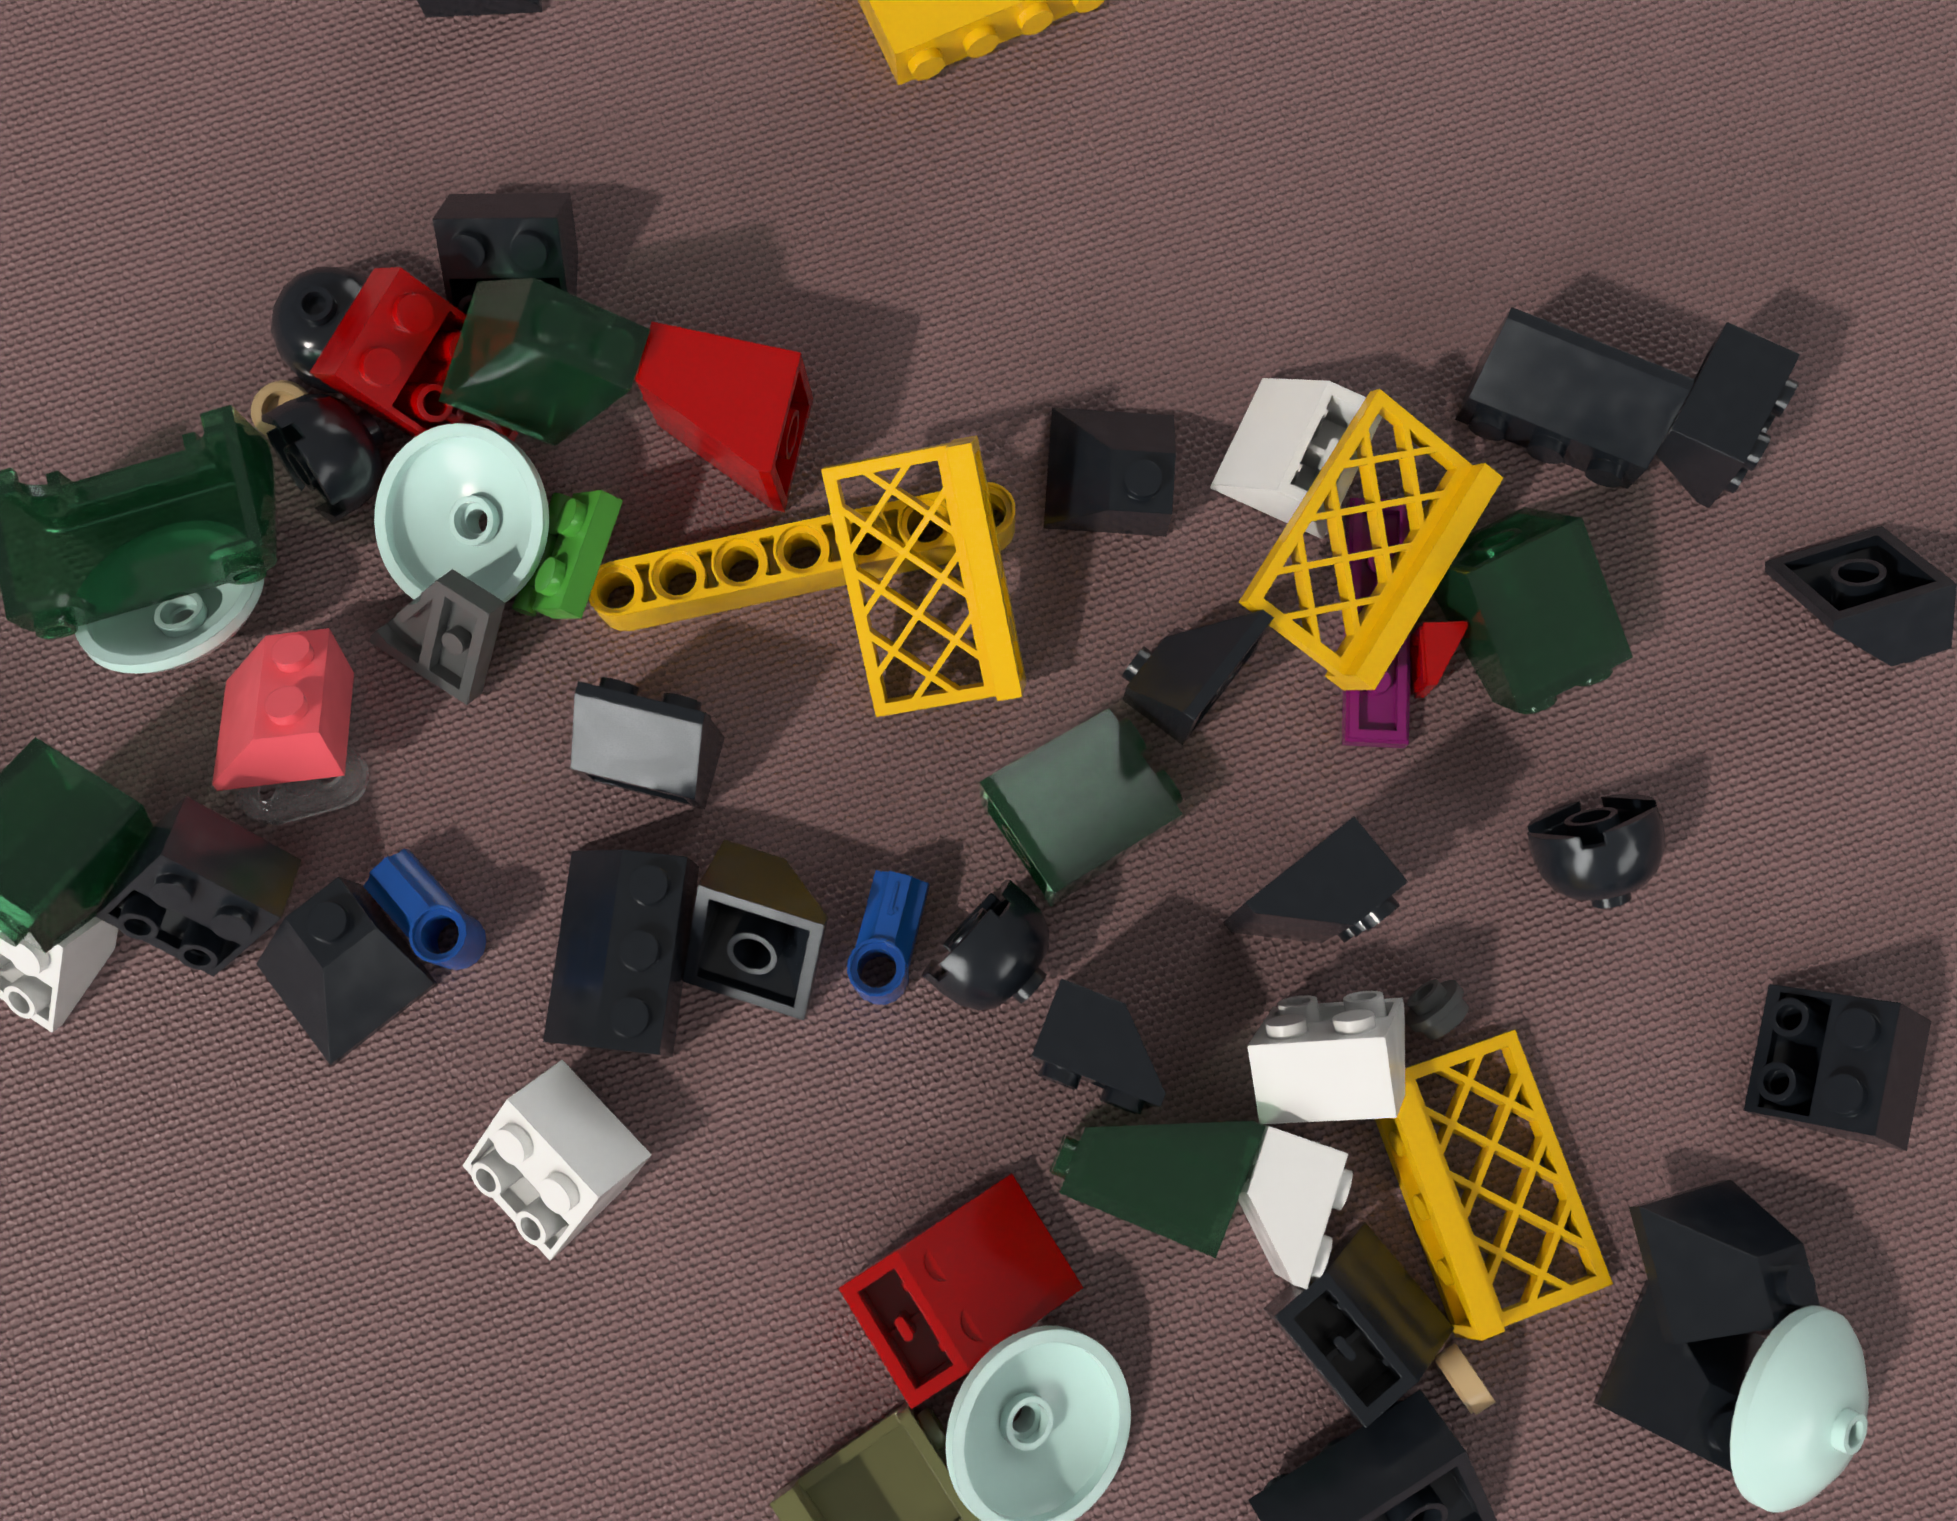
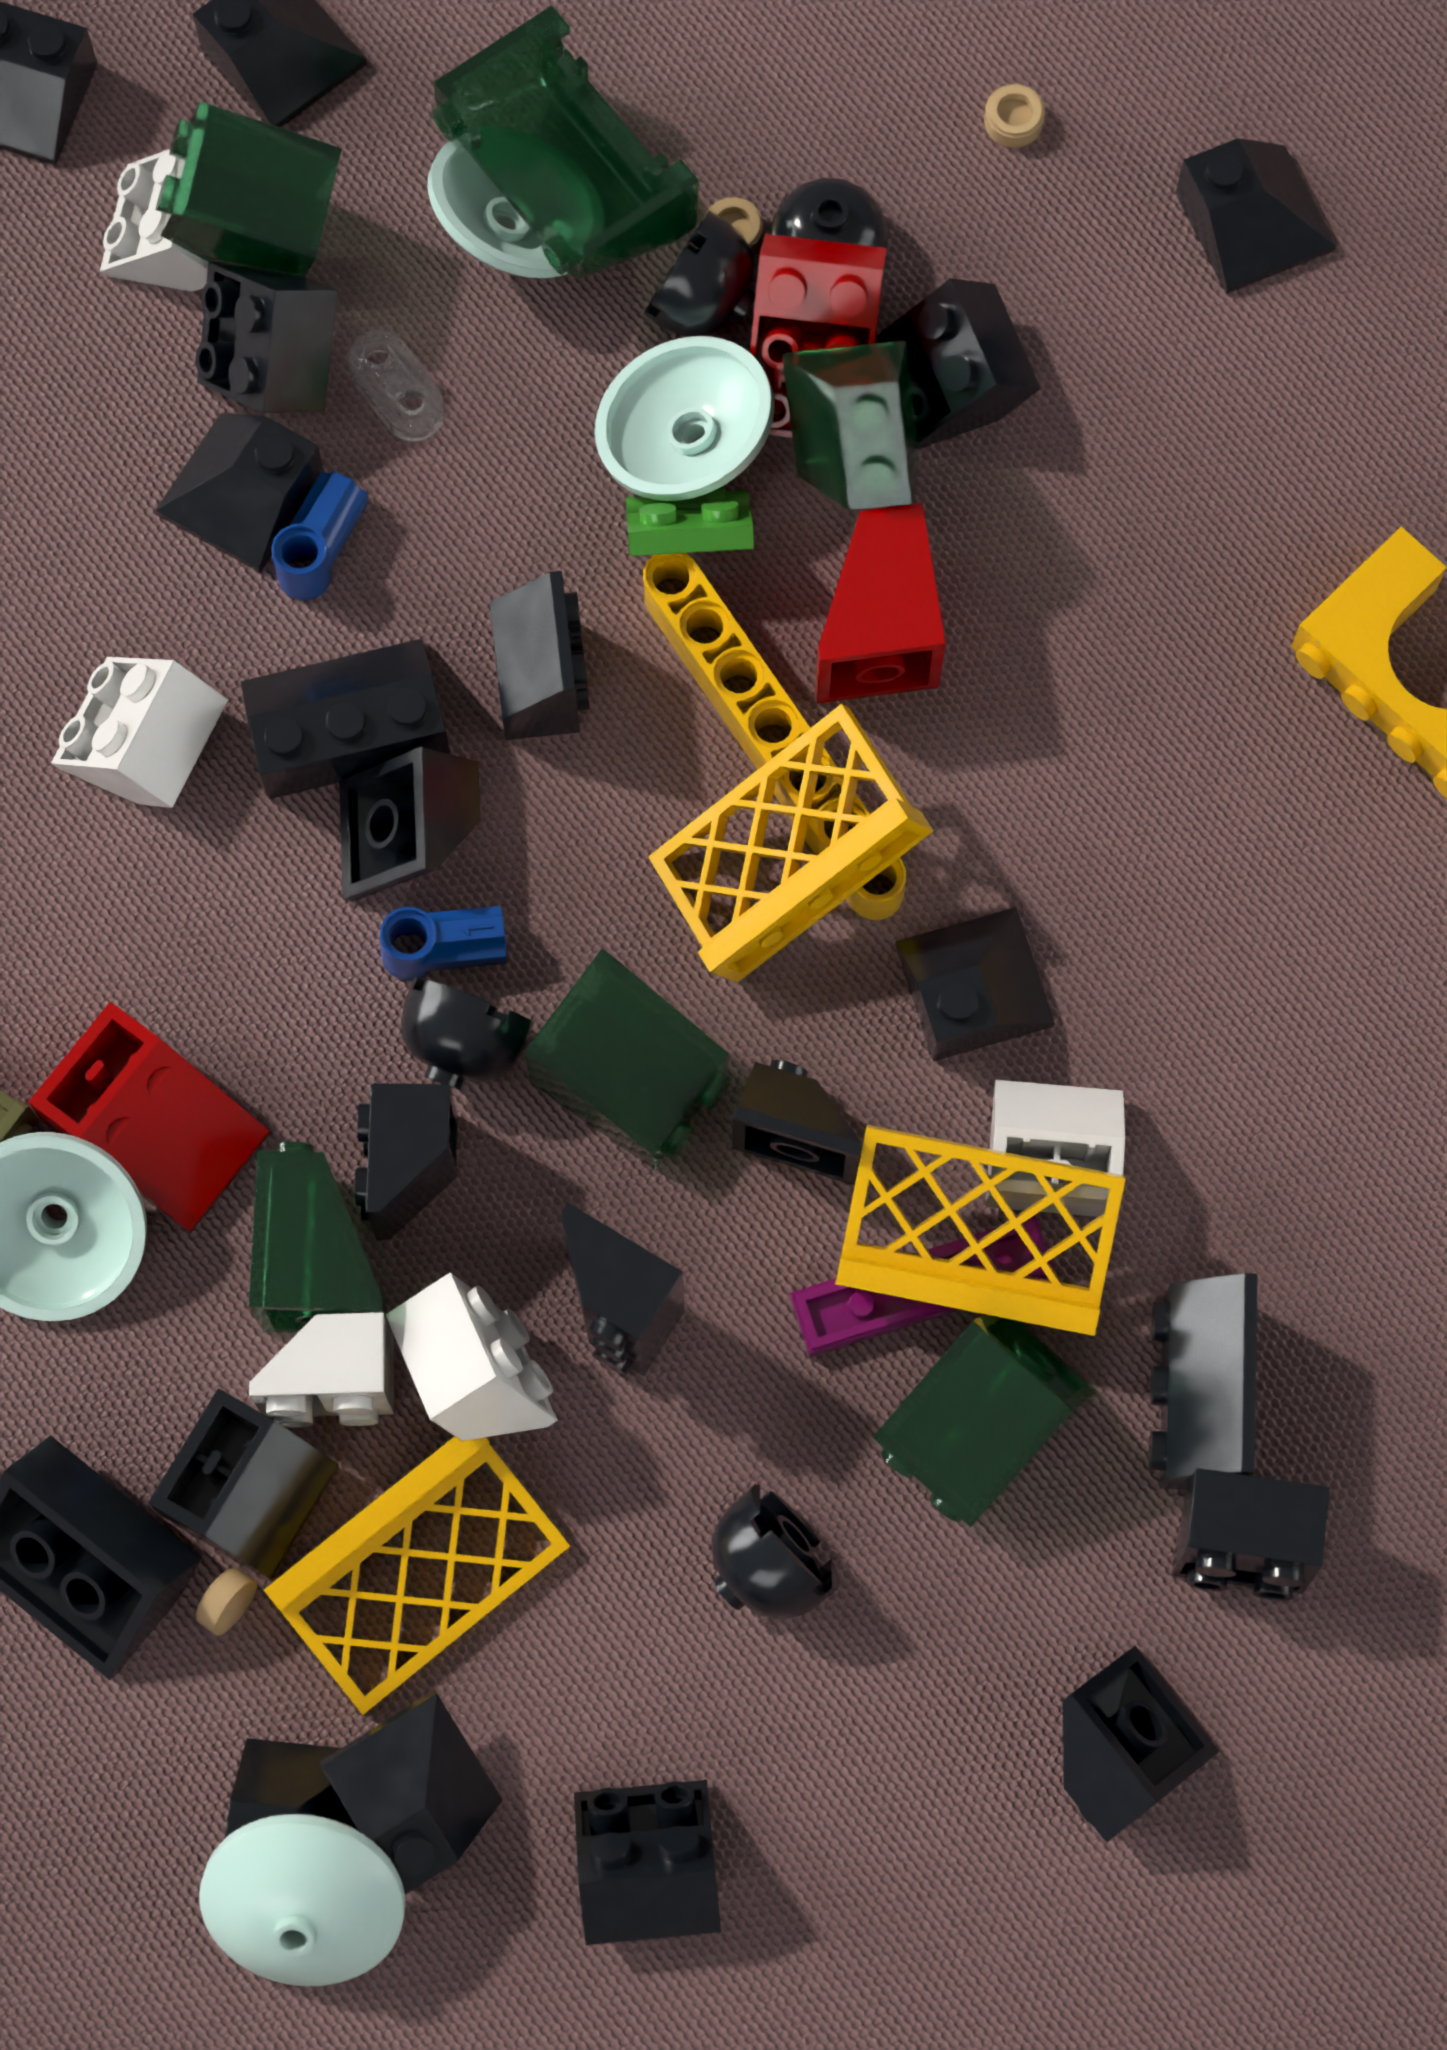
camera: 65 degrees right, 5 degrees down
(285, 713) = (450, 345): coral slope -> none
(287, 122) = (1014, 115): none -> tan tile
(446, 635) = (572, 450): dark grey wing -> none
(1431, 652) = (904, 1343): red slope -> none
(1436, 1008) = (562, 1461): dark grey plate -> none

